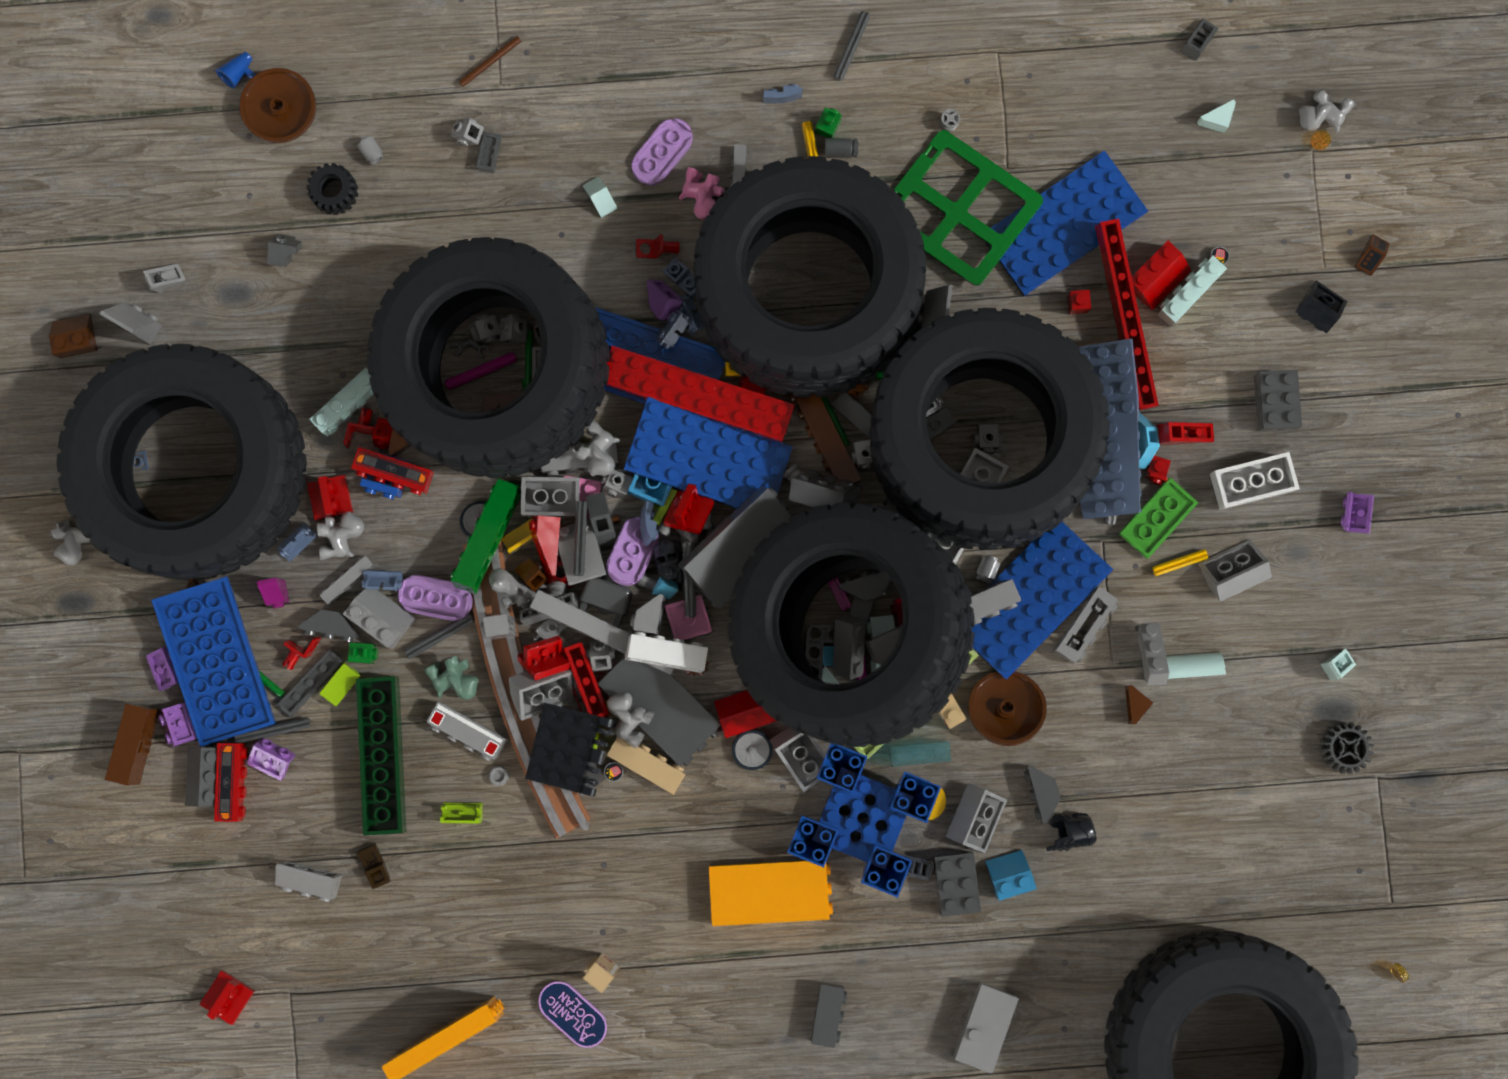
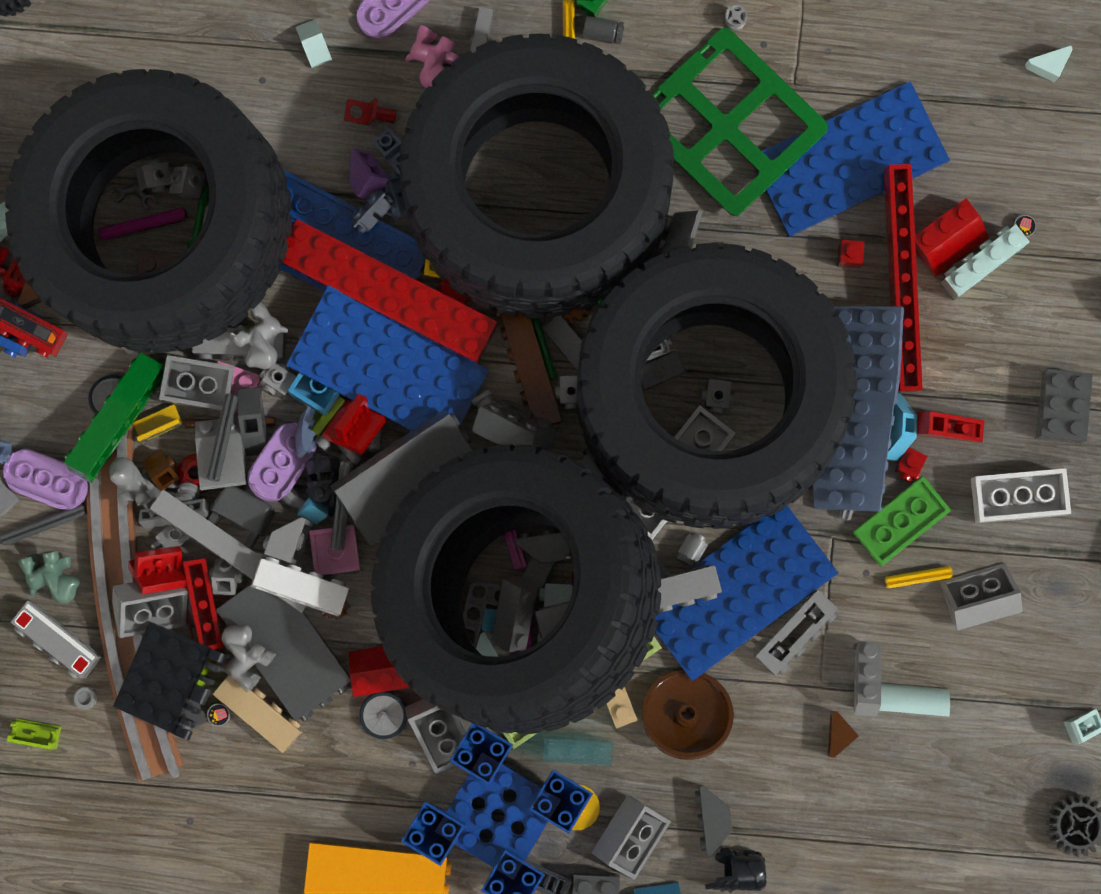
camera: 10 degrees right, 0 degrees up
(499, 626) = (110, 525): light grey brick -> none
(546, 538) = (183, 430): slope -> none

